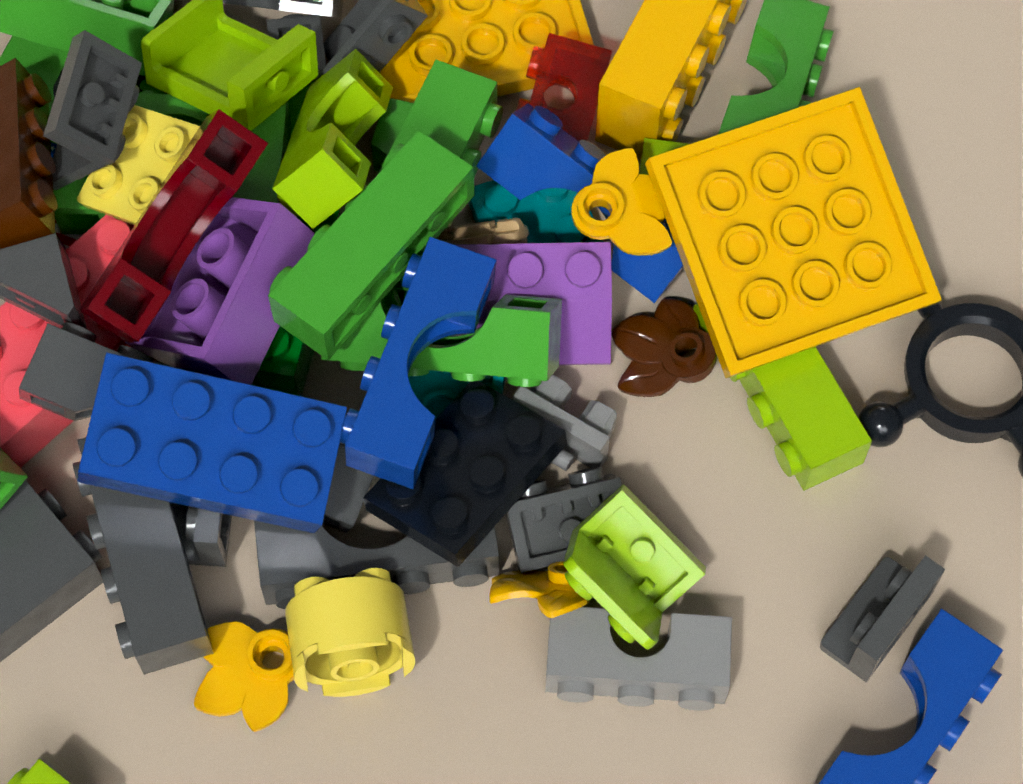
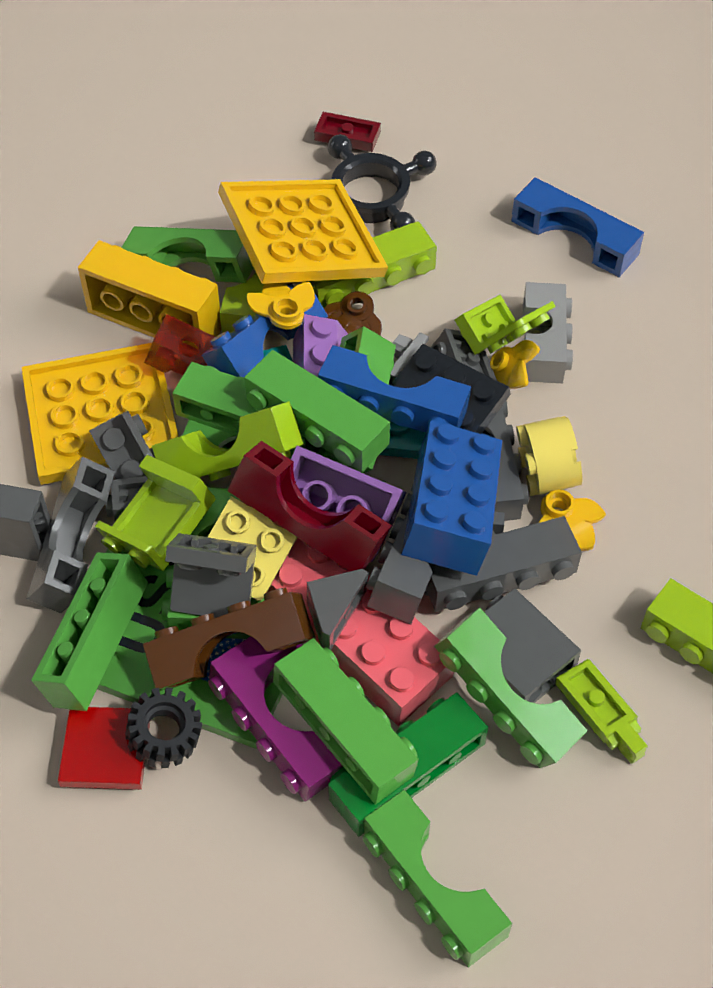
camera: 90 degrees left, 10 degrees down
(880, 614) = (515, 226): dark grey bracket -> none

